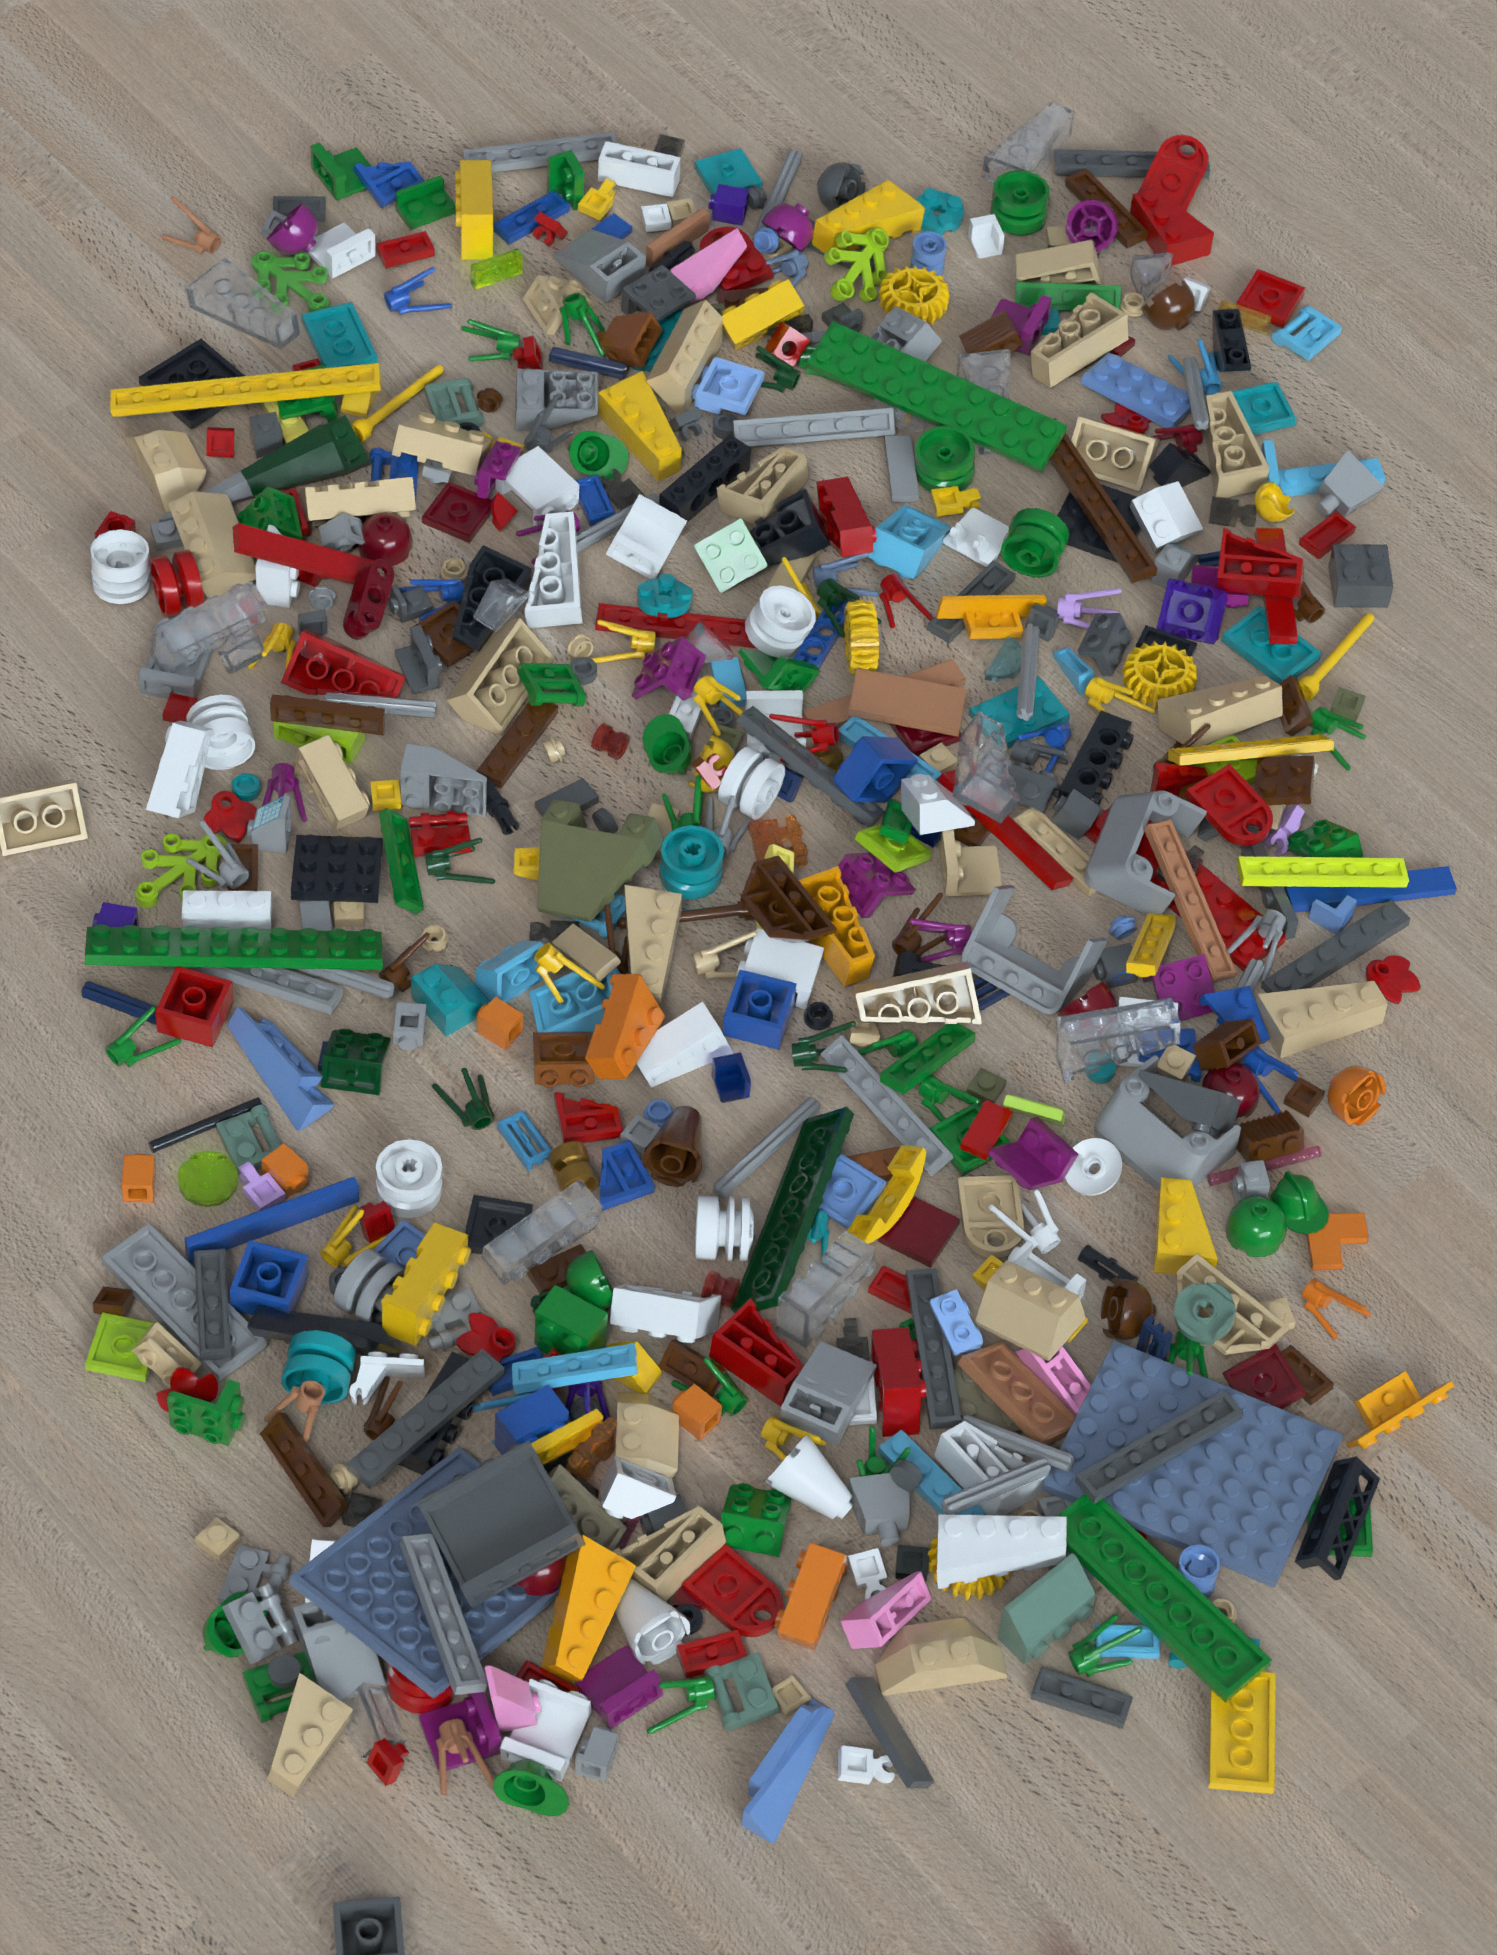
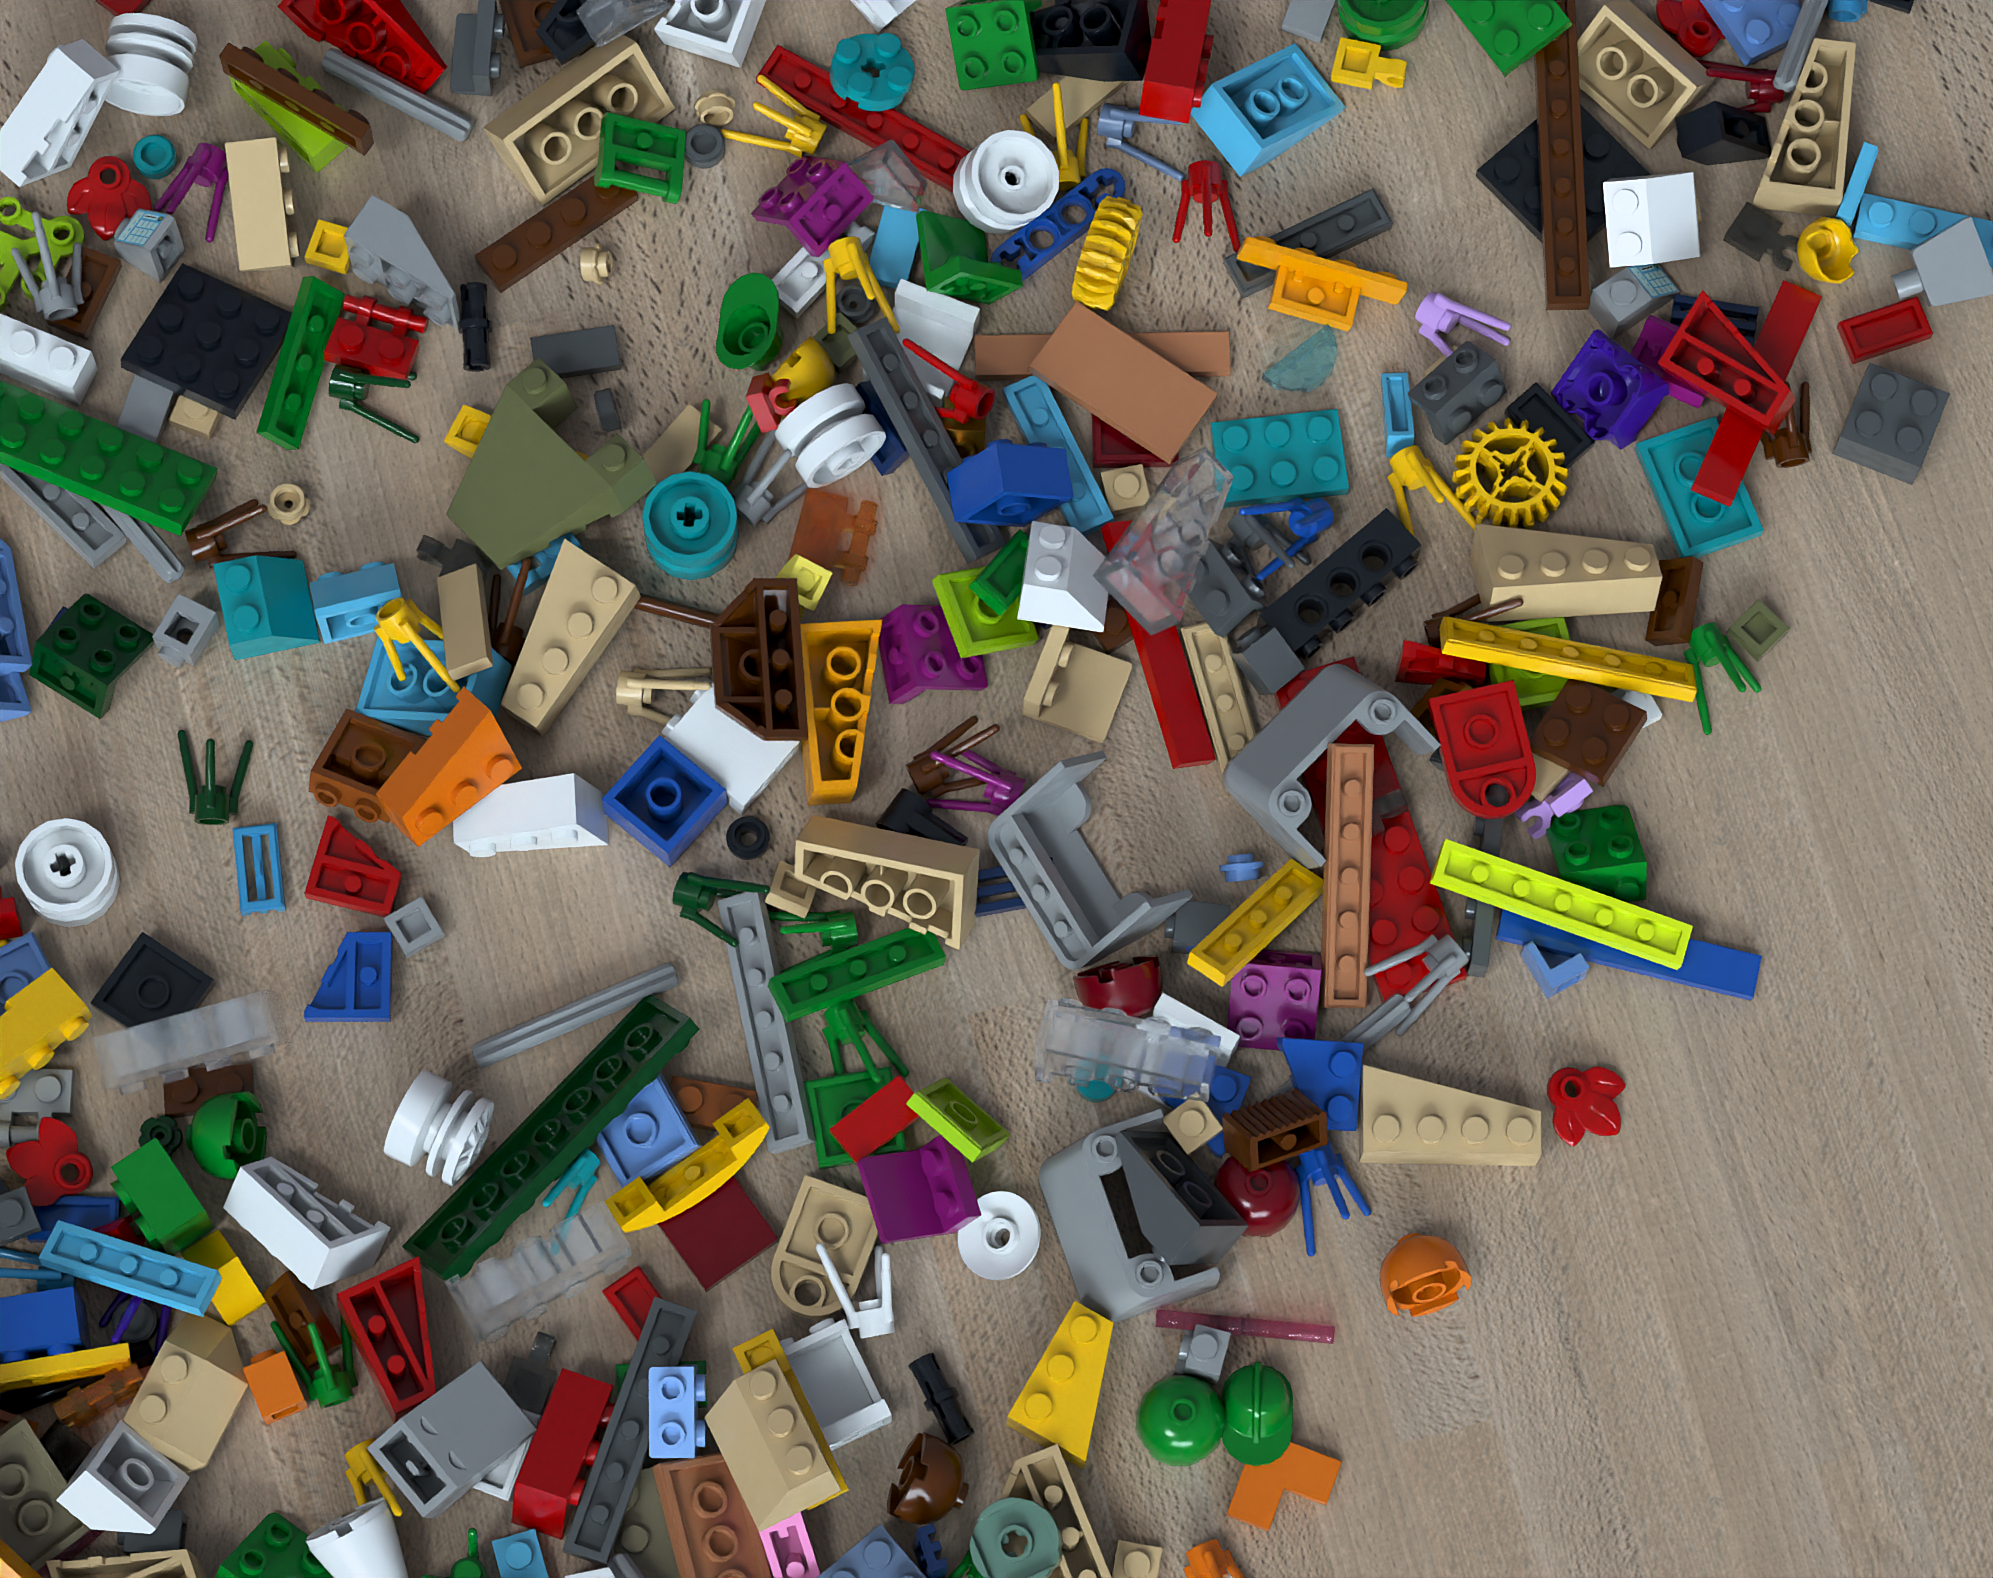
camera: 25 degrees right, 20 degrees up
(499, 1022) = (308, 674): orange brick -> none
(571, 1163) = (292, 948): pearl gold wheel -> none
(610, 741) = (679, 281): clear red wheel -> none
(658, 1112) = (455, 904): medium blue plate -> none
(676, 1149) = (448, 969): reddish brown cone -> none
(721, 1286) = (399, 1212): clear red wheel -> none
(731, 1077) = (578, 889): clear blue panel -> none
(834, 594) = (1109, 166): dark green plant -> none
(977, 537) = (1374, 141): white plate -> none
(986, 1086) = (923, 1043): olive plate -> none
(1028, 672) = (1318, 401): light grey axle -> none
(1034, 542) = (1436, 190): green wheel -> none
(1045, 618) = (1388, 320): dark grey tile -> none
(1265, 408) = (1900, 78): teal plate -> none
(1270, 1137) = (1267, 1292): reddish brown brick -> none
(1304, 1097) = (1354, 1244): reddish brown plate -> none
(1310, 683) = (1719, 576): yellow piece -> none
(1339, 950) = (1526, 1028): dark grey plate -> none

